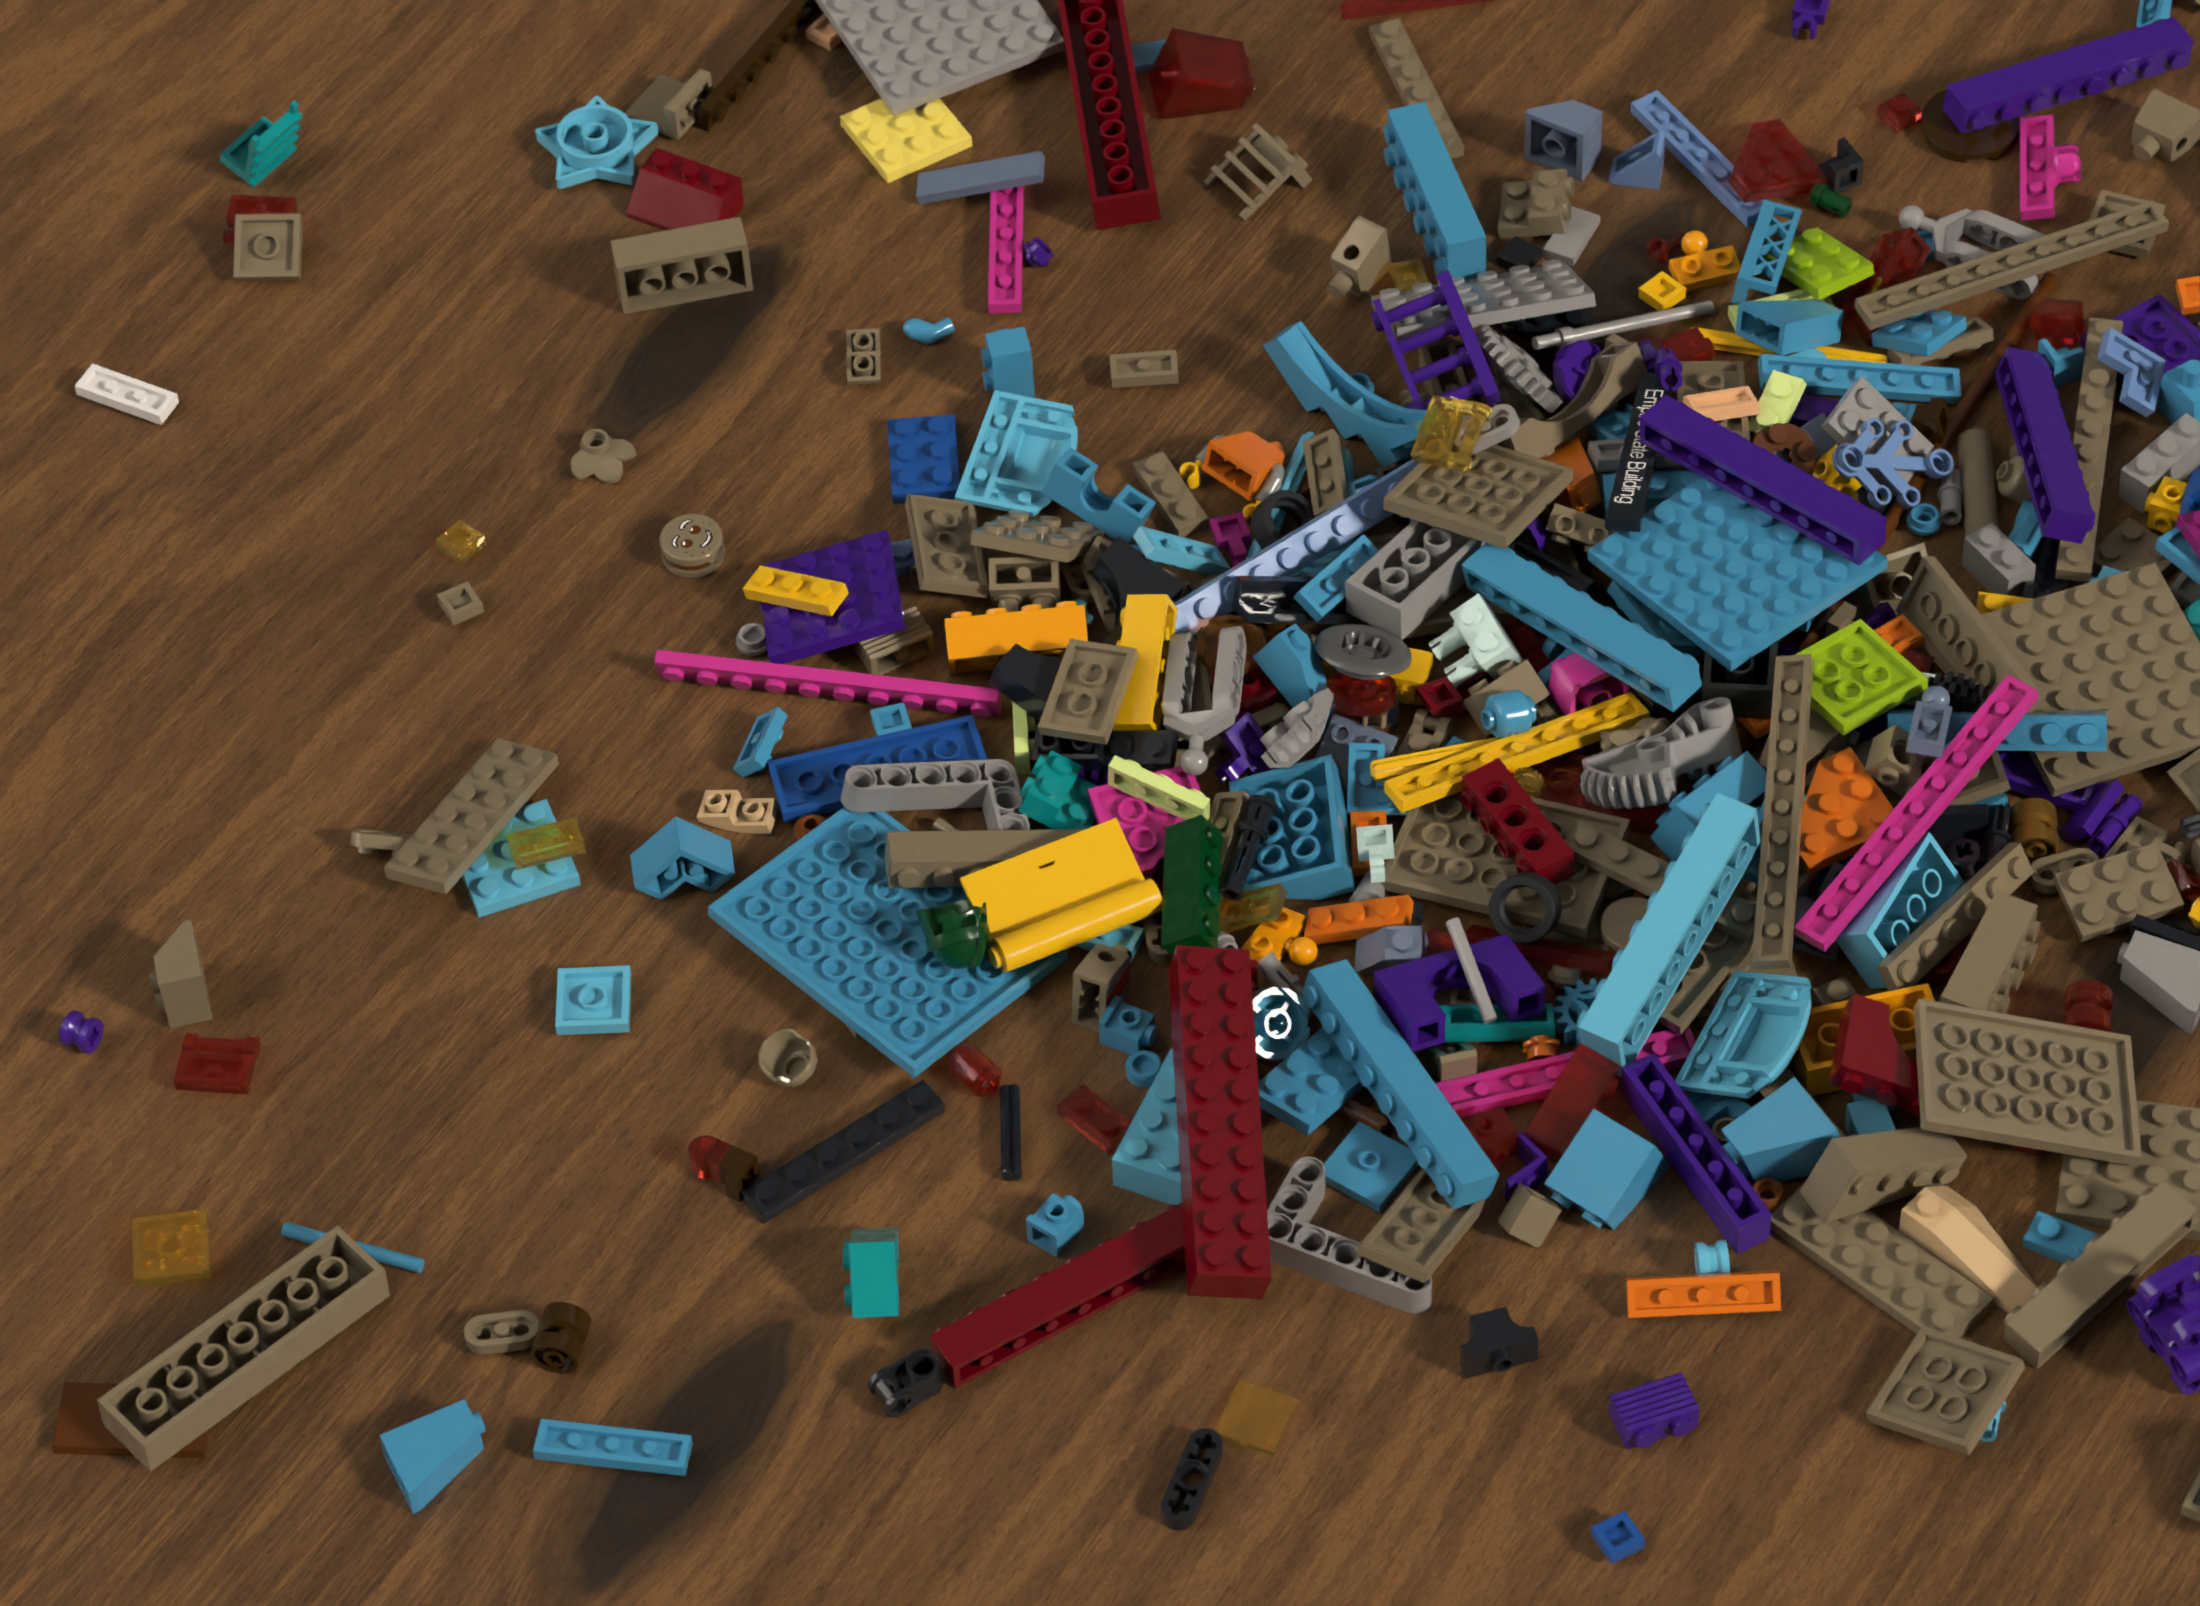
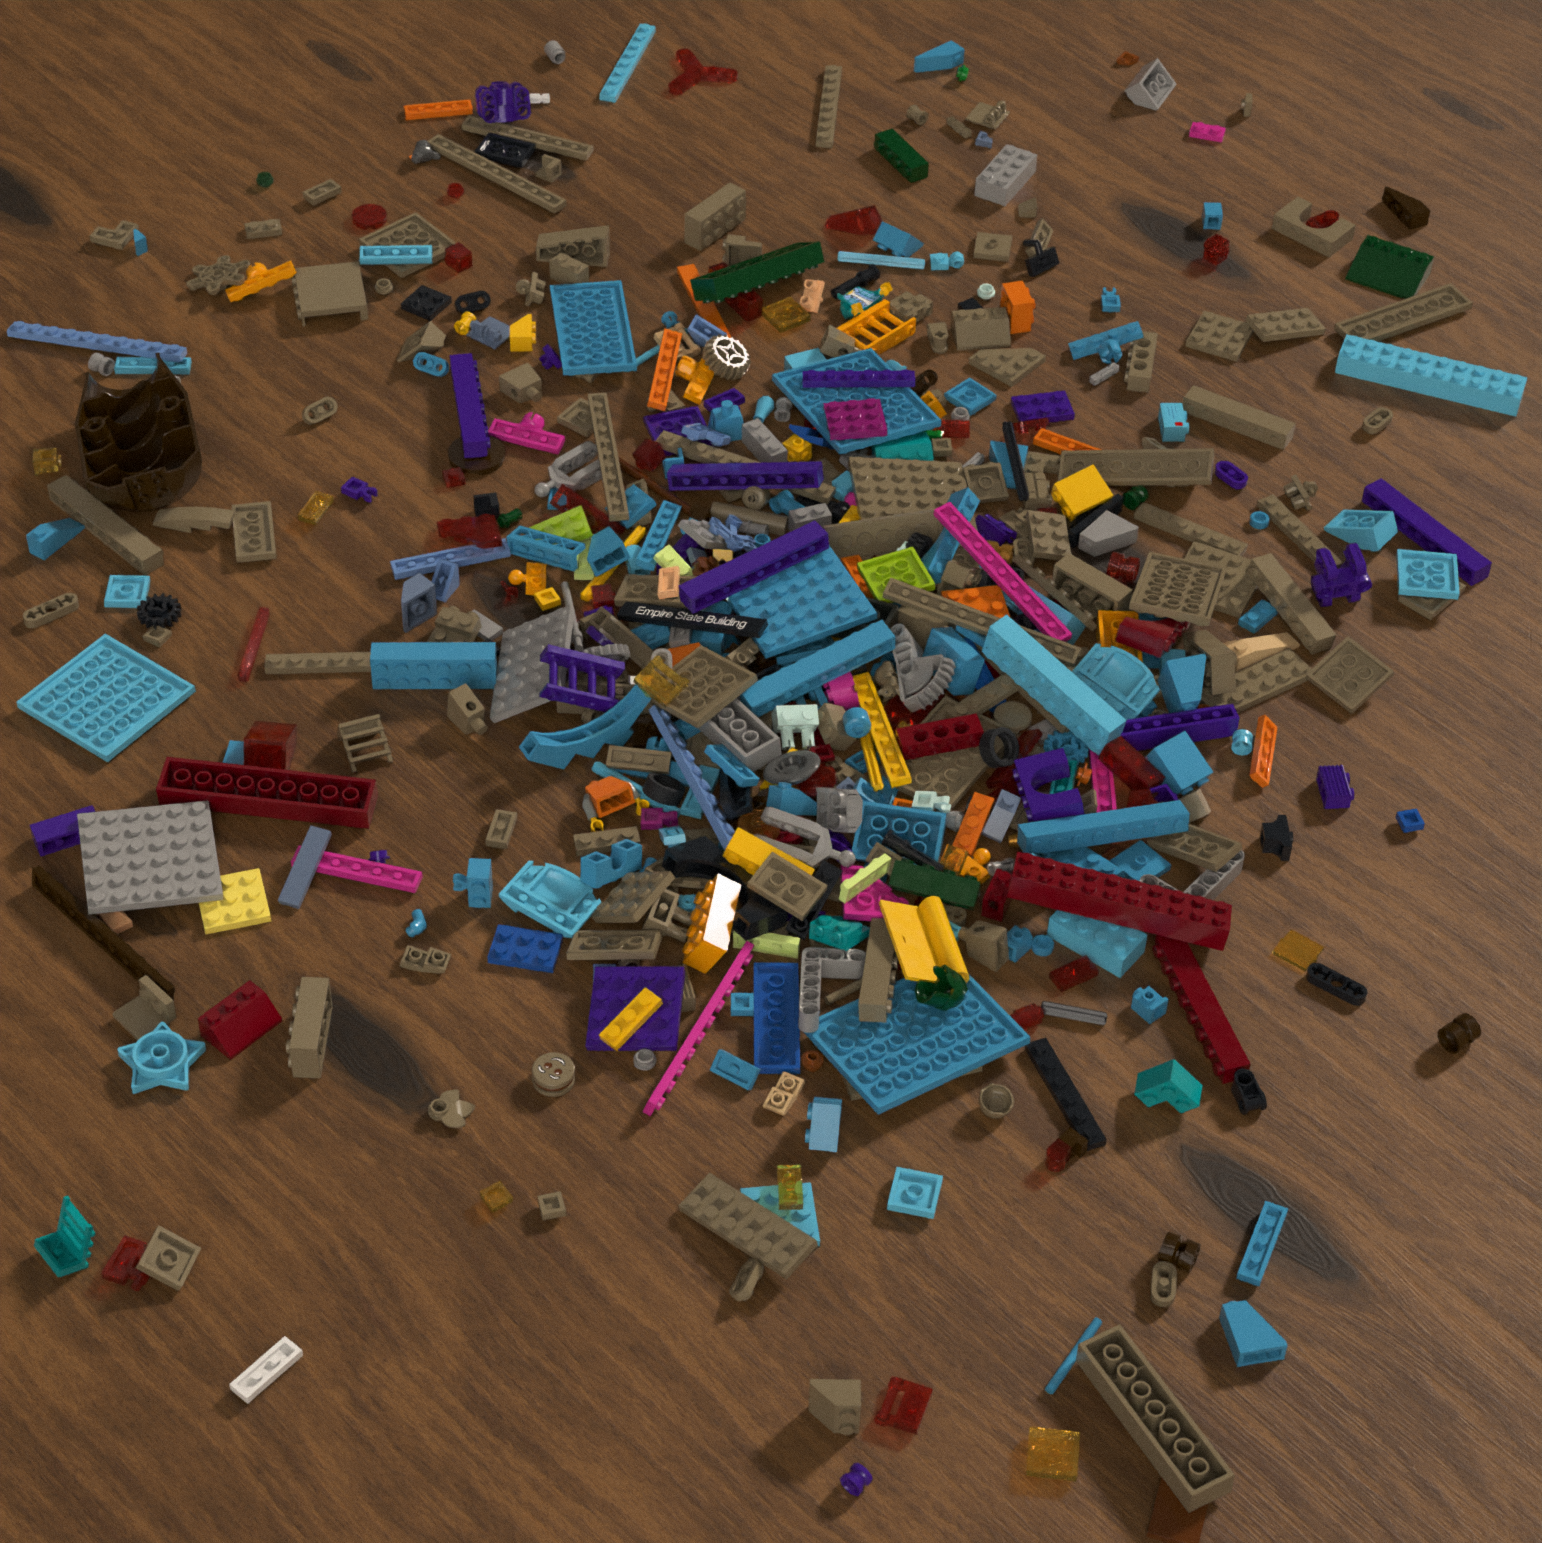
camera: 80 degrees left, 5 degrees down
(1407, 273) = (485, 696): clear yellow plate -> none
(1471, 970) = (1040, 776): light grey bar -> none
(1668, 369) = (627, 598): dark purple pin -> none
(1930, 723) = (949, 549): sand blue plate -> none

